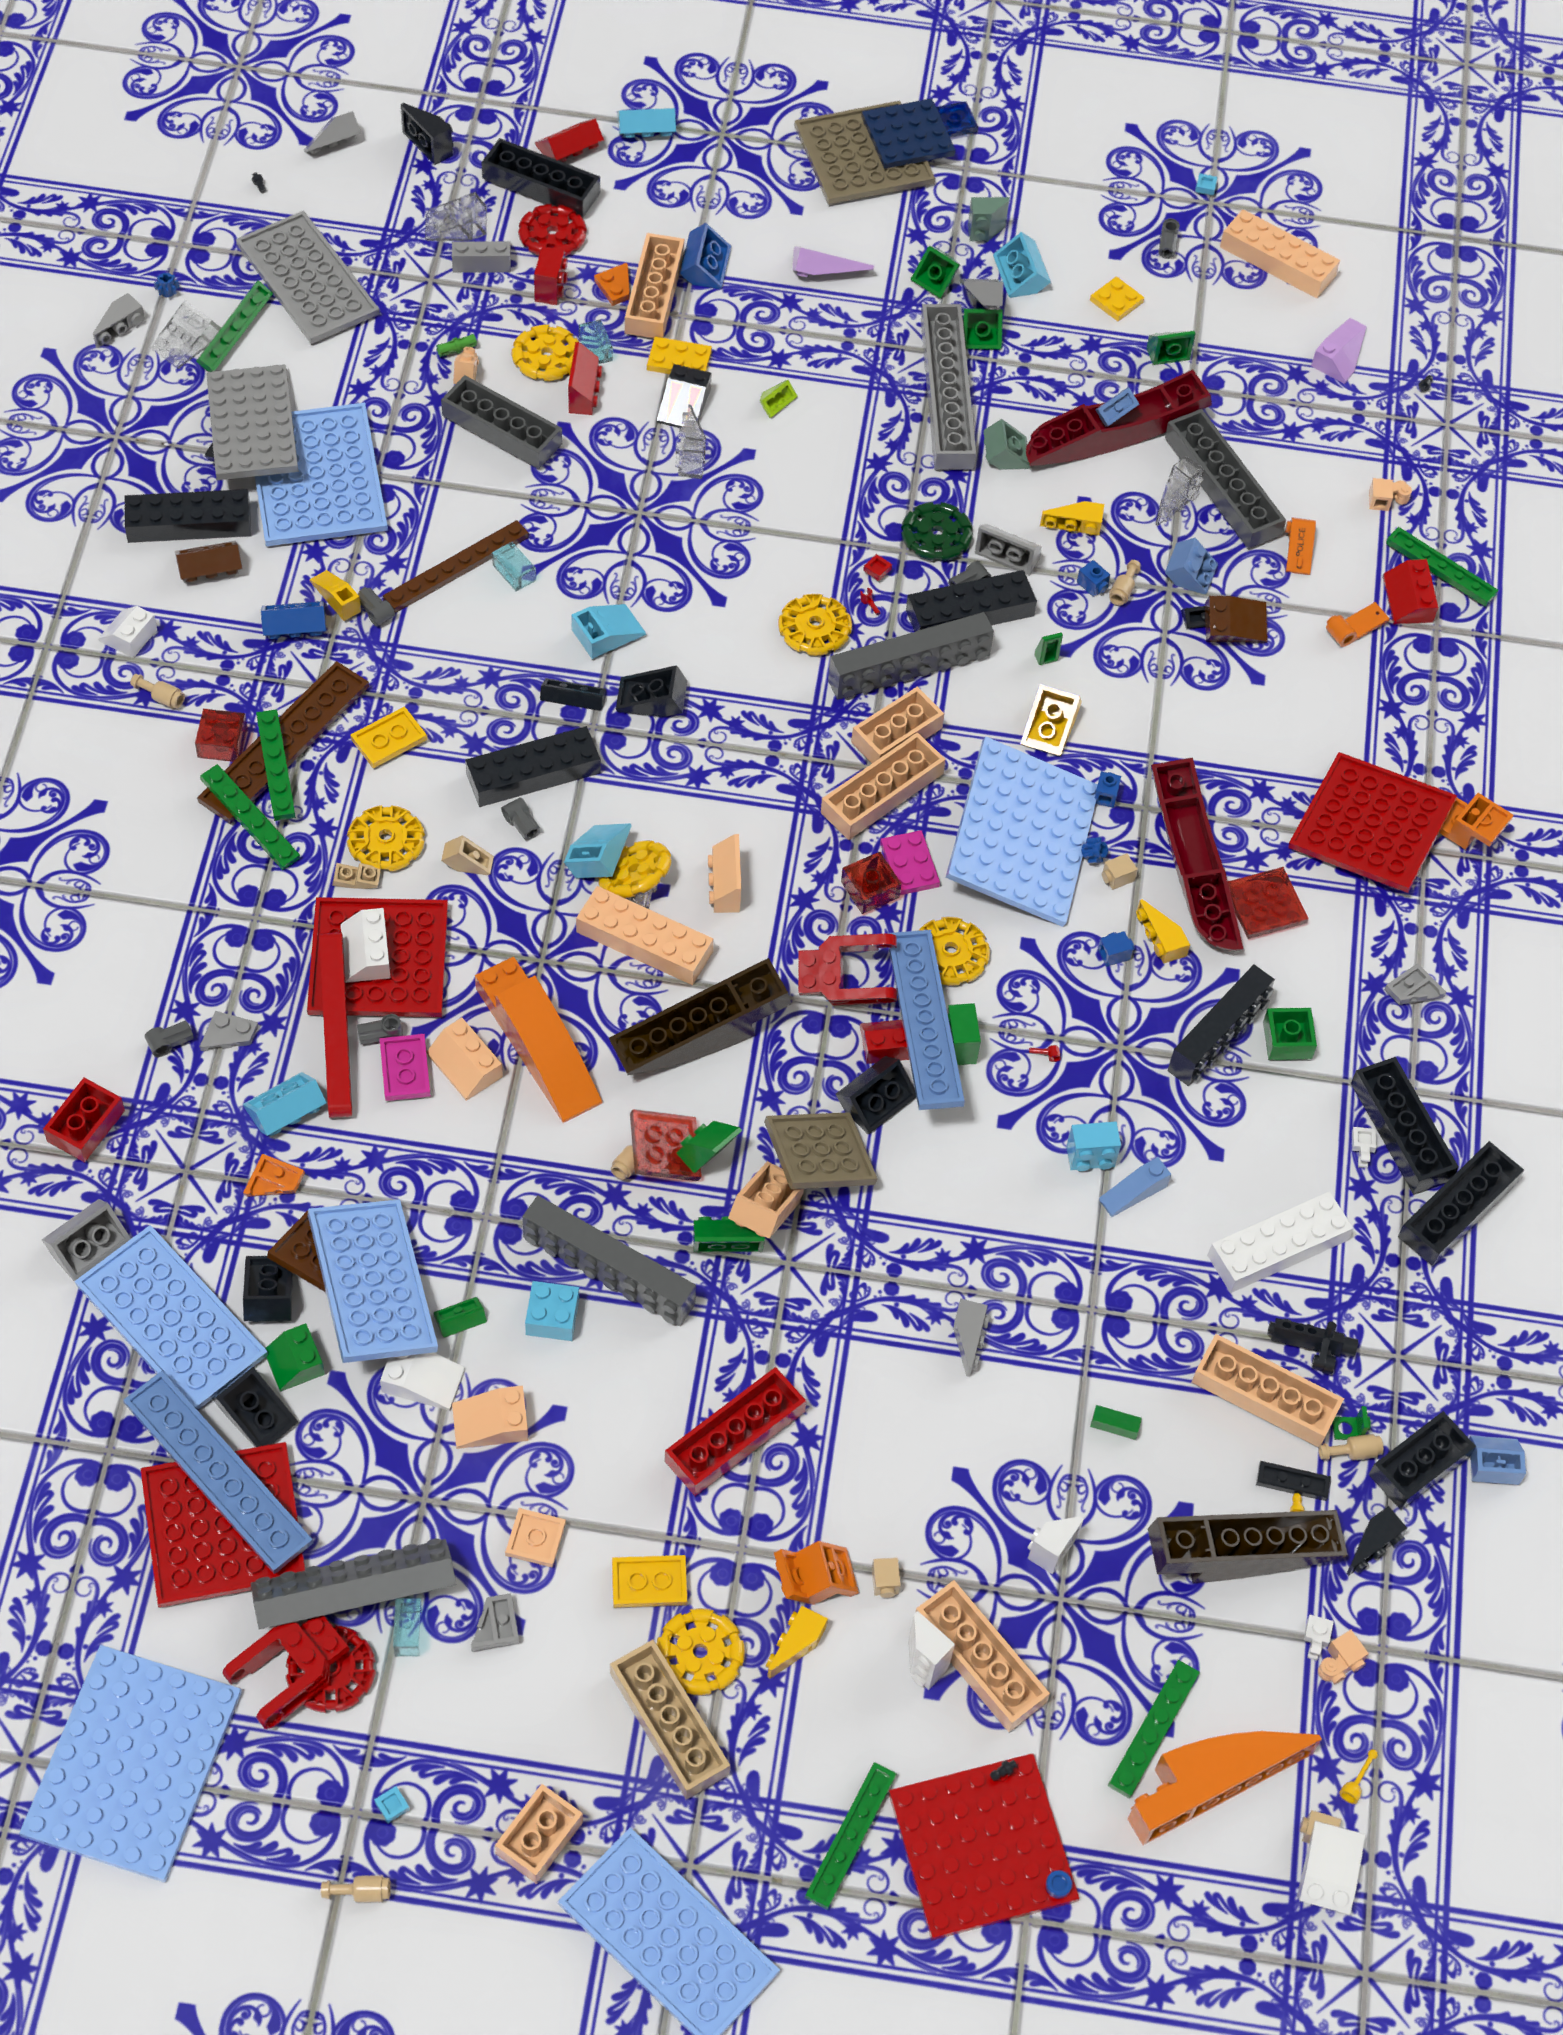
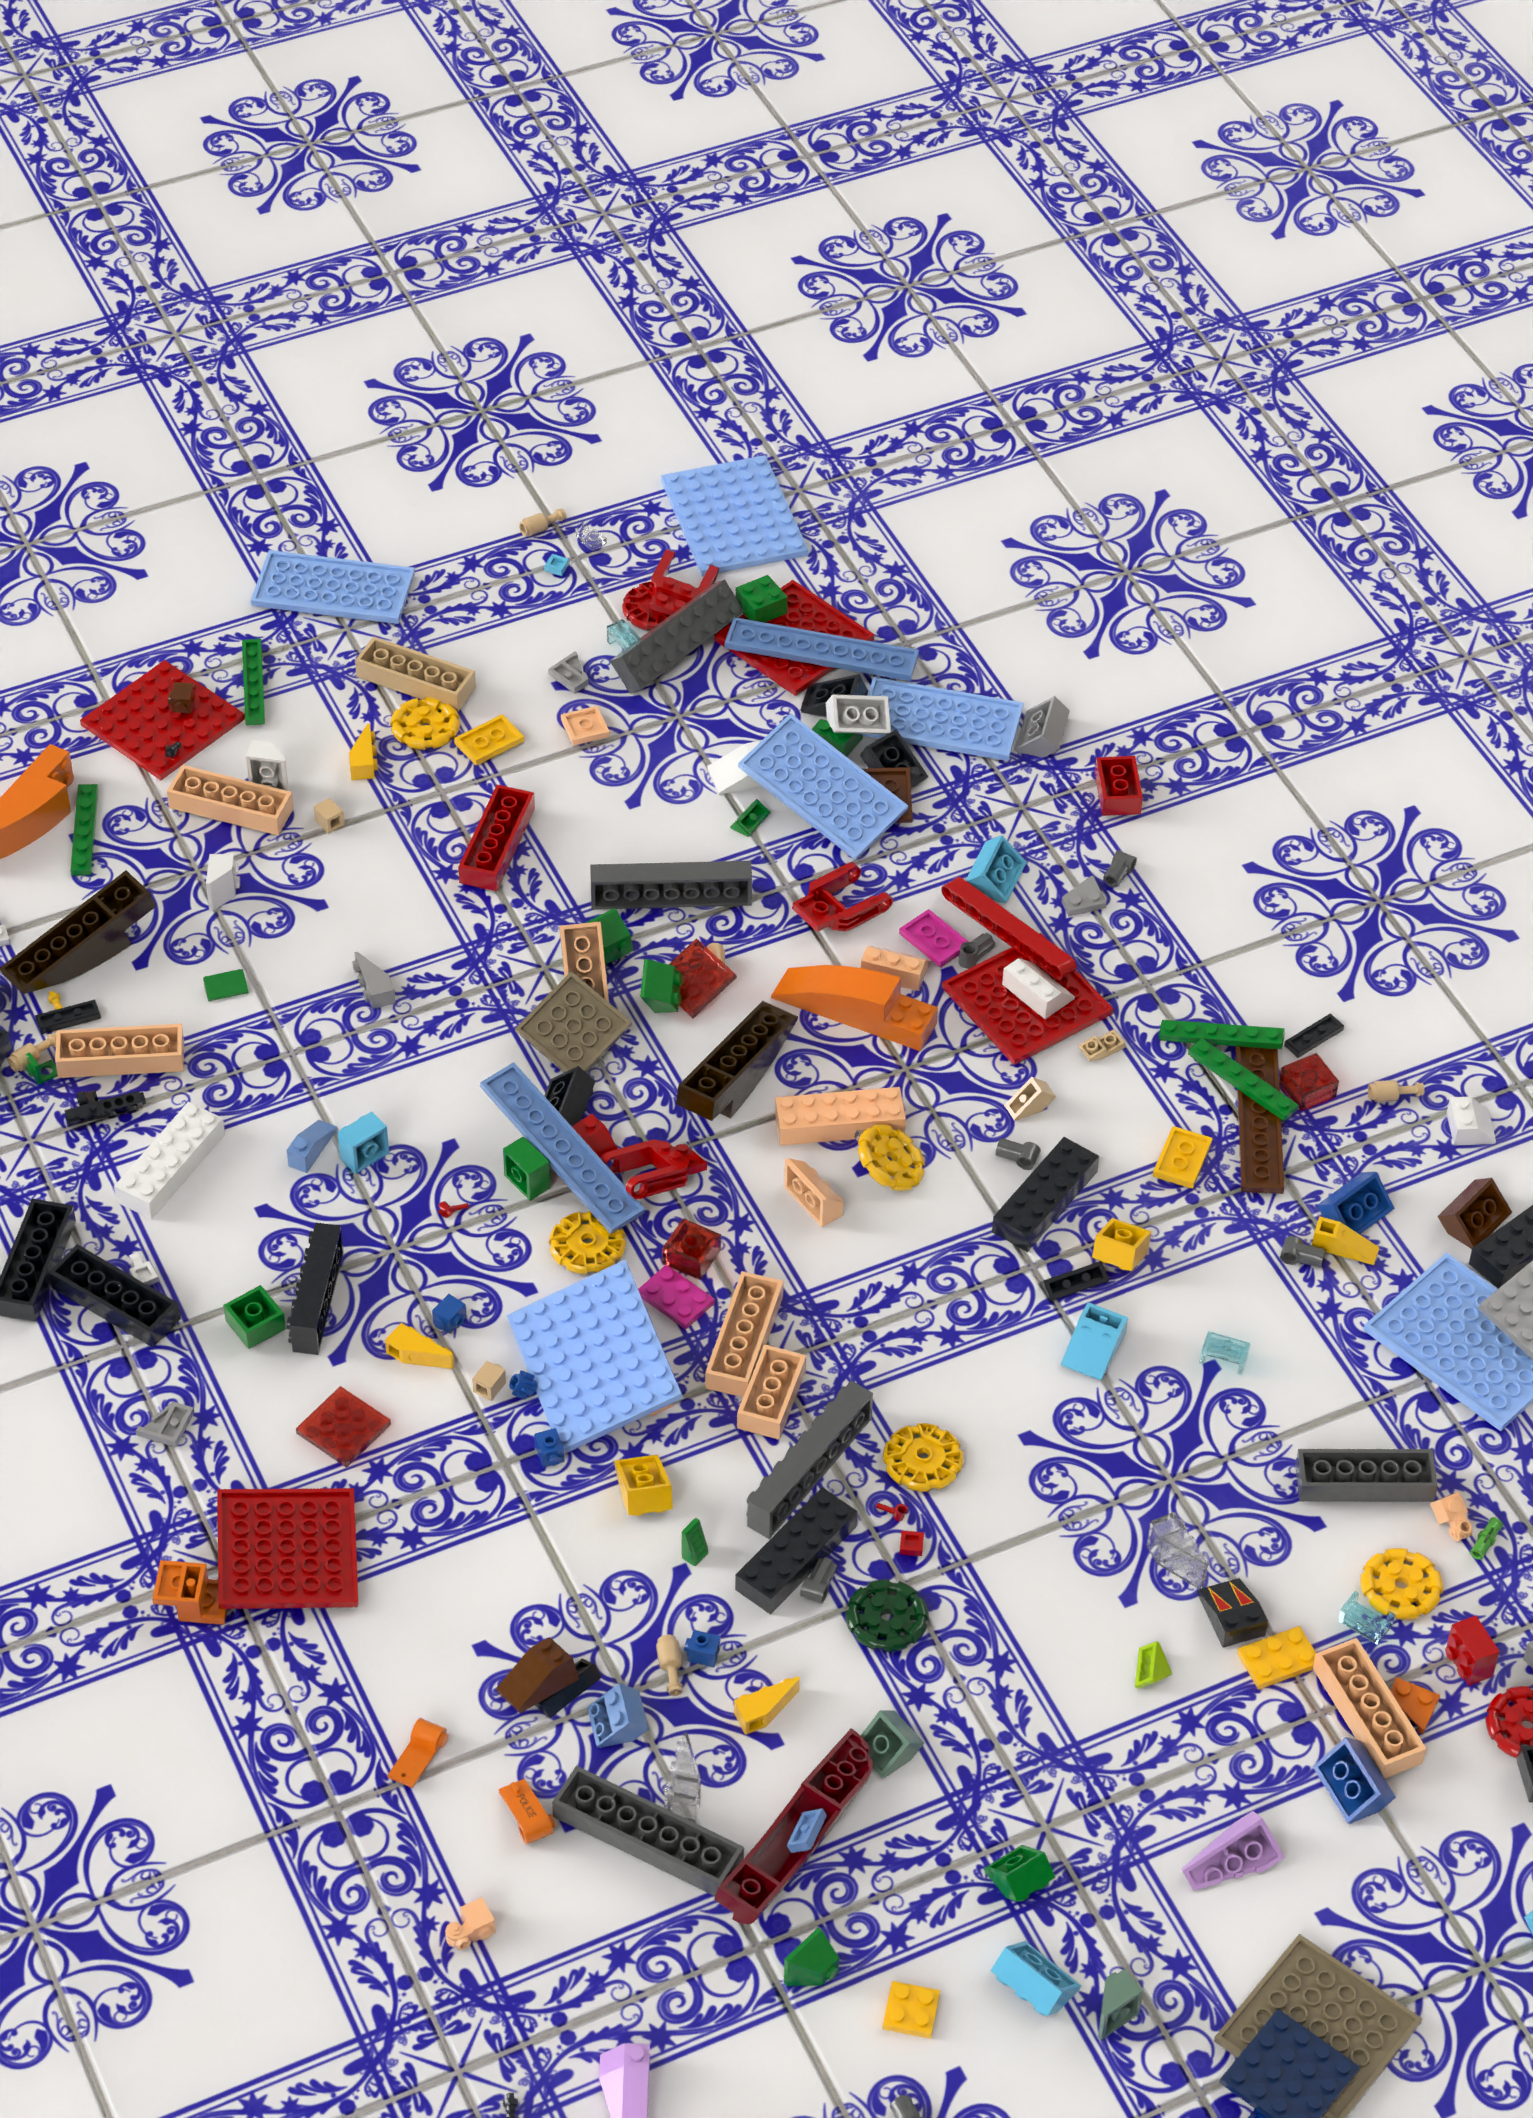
camera: 150 degrees right, 10 degrees down
(167, 782) = (1314, 1035): none -> black tile
(224, 1576) = (762, 599): none -> green brick
(263, 1342) = (858, 714): none -> white slope
(273, 1178) = (956, 827): orange wing -> none
(319, 1827) = (591, 539): none -> clear plate
(389, 848) = (1108, 1094): yellow plate -> none
(454, 566) = (1274, 1333): reddish brown plate -> none
(485, 1152) = (823, 910): none -> red plate
(491, 1418) = (670, 771): light nougat slope -> none
(516, 681) = (1121, 1244): none -> yellow brick
(539, 1833) = (452, 587): light nougat brick -> none
(552, 1311) = (686, 842): medium azure brick -> none
(583, 381) = (1336, 1560): slope -> none
(597, 851) = (932, 1151): medium azure slope -> none
(653, 692) = (1005, 1310): black slope -> none
(815, 1572) = (377, 787): orange bracket -> none
(935, 271) = (1118, 1914): green slope -> none
(948, 387) = (997, 1770): light grey brick -> none
(954, 1837) = (182, 697): none -> reddish brown brick
(985, 291) = (1044, 1887): light grey slope -> none
(1007, 549) = (805, 1624): light grey slope -> none
(1058, 1884) = (97, 713): blue tile -> none
(1196, 853) = (430, 1422): dark red slope -> none
(1411, 593) = (381, 1819): red slope -> none
(1442, 566) = (367, 1872): green plate -> none

